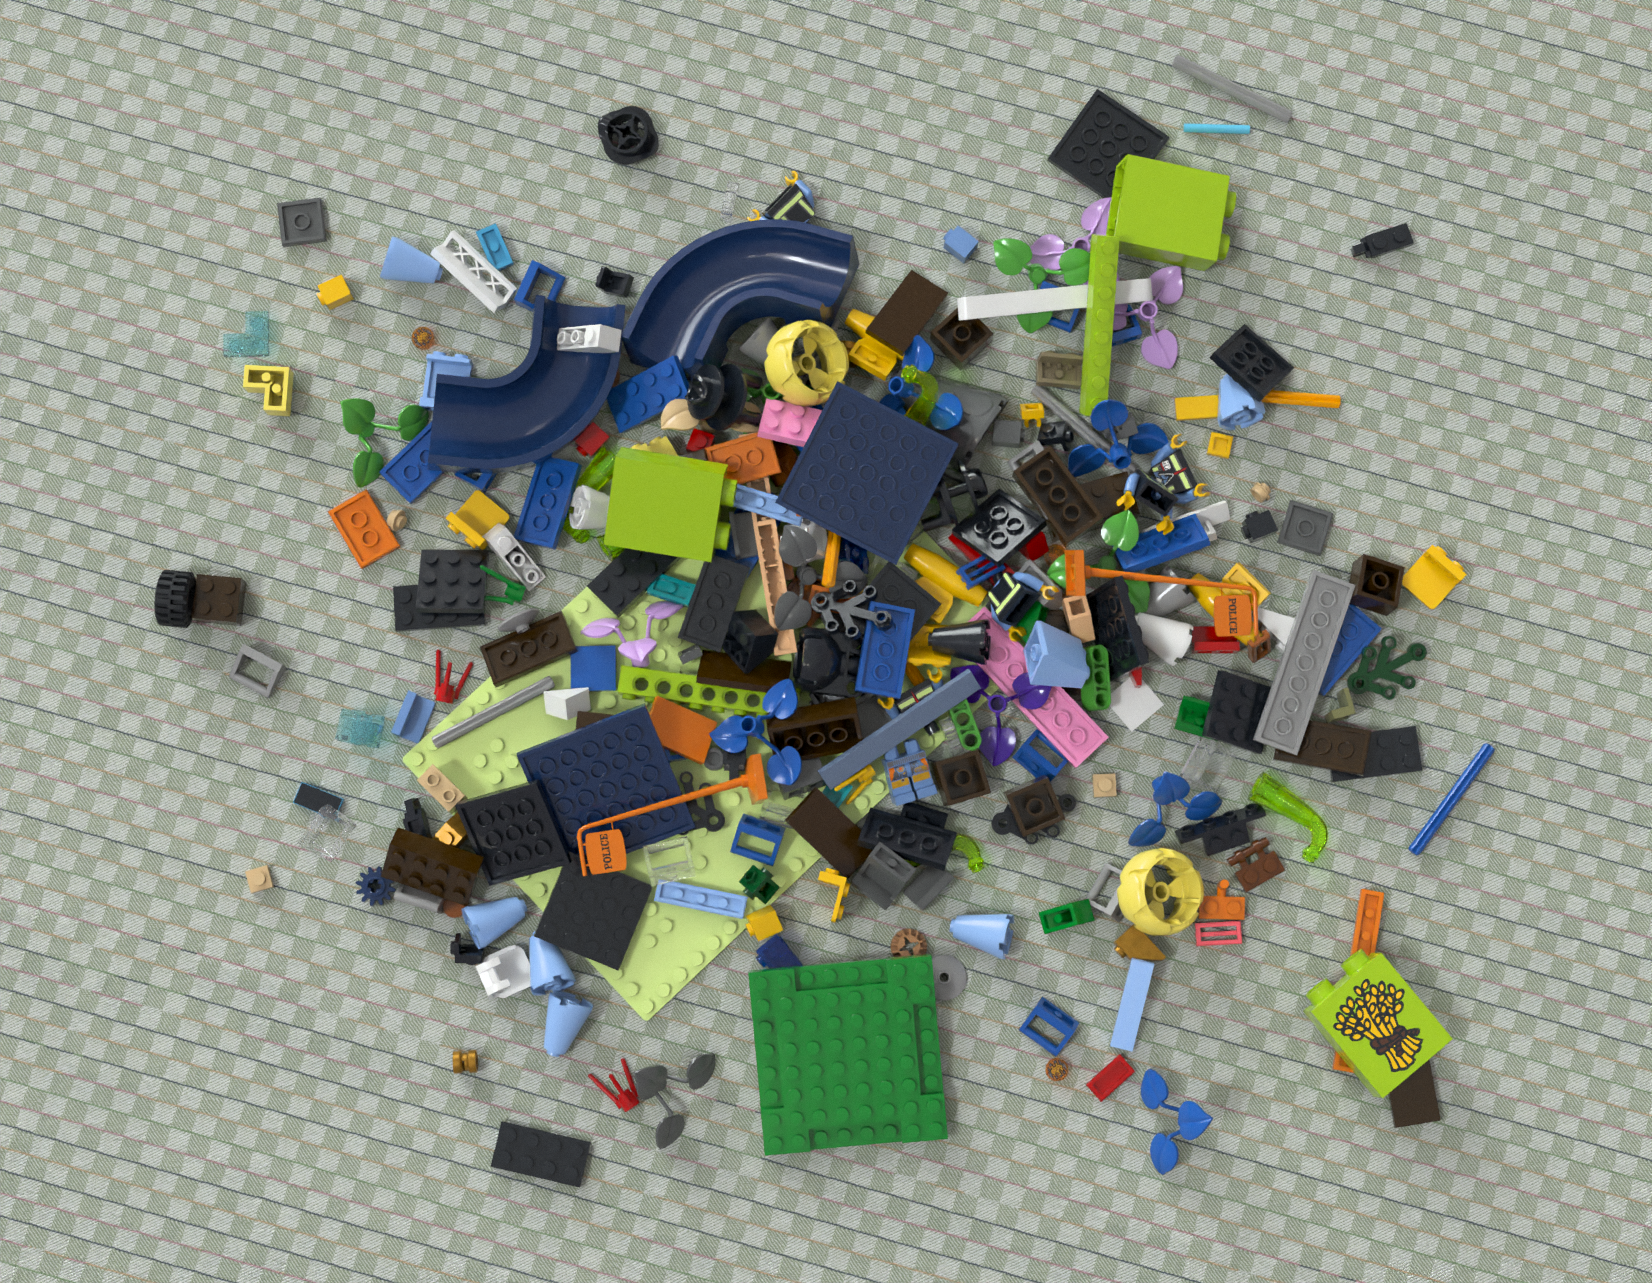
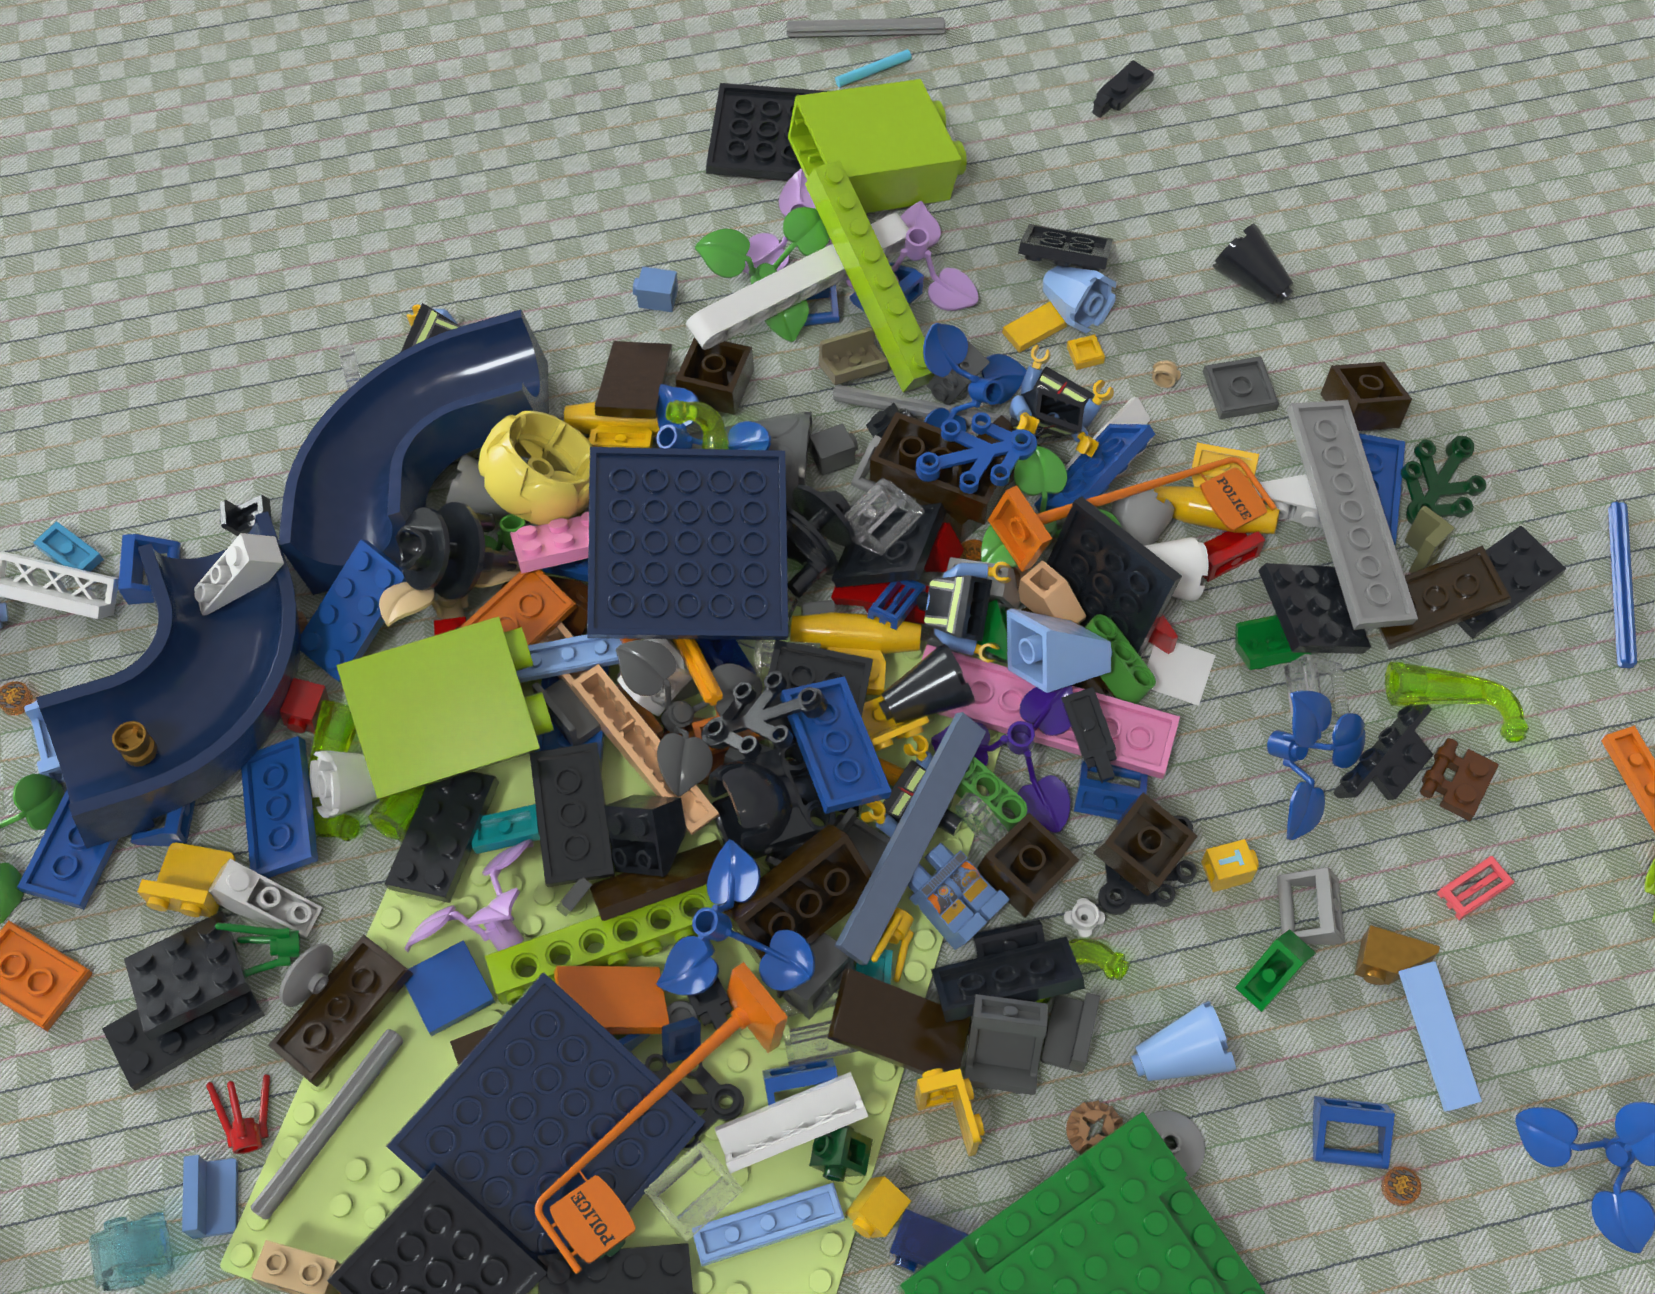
camera: 30 degrees left, 20 degrees down
(396, 519) = (70, 937): tan plate -> none
(481, 420) = (134, 743): none -> pearl gold wheel
(567, 702) = (428, 1051): white slope -> none
(633, 116) = (193, 362): black piece -> none
(706, 773) = (680, 1039): none -> dark blue plate
(741, 854) = (790, 1122): none -> white fence
(931, 546) = (817, 607): none -> dark grey tile
(973, 830) = (1086, 908): none -> white plate
(1001, 499) = (875, 508): none -> clear tile
(1032, 411) = (850, 415): yellow tile -> none
(1045, 720) = (1091, 731): none -> black hinge
(1081, 842) = (1230, 865): none -> yellow brick
(1083, 506) = (978, 451): none -> blue plant
(1104, 785) = (1210, 784): tan plate -> none
(1110, 1078) = (1477, 1156): red tile -> none
(1140, 888) = (1362, 881): light yellow wheel -> none
(1222, 907) = (1453, 852): orange plate -> none
(1255, 650) = (1285, 524): dark orange tile -> none
(1258, 526) = (1189, 406): black brick -> none
(1303, 399) = (1148, 263): light orange axle -> none
(1372, 445) = (1255, 266): none -> black cone
(1433, 577) = (1421, 359): yellow bracket -> none

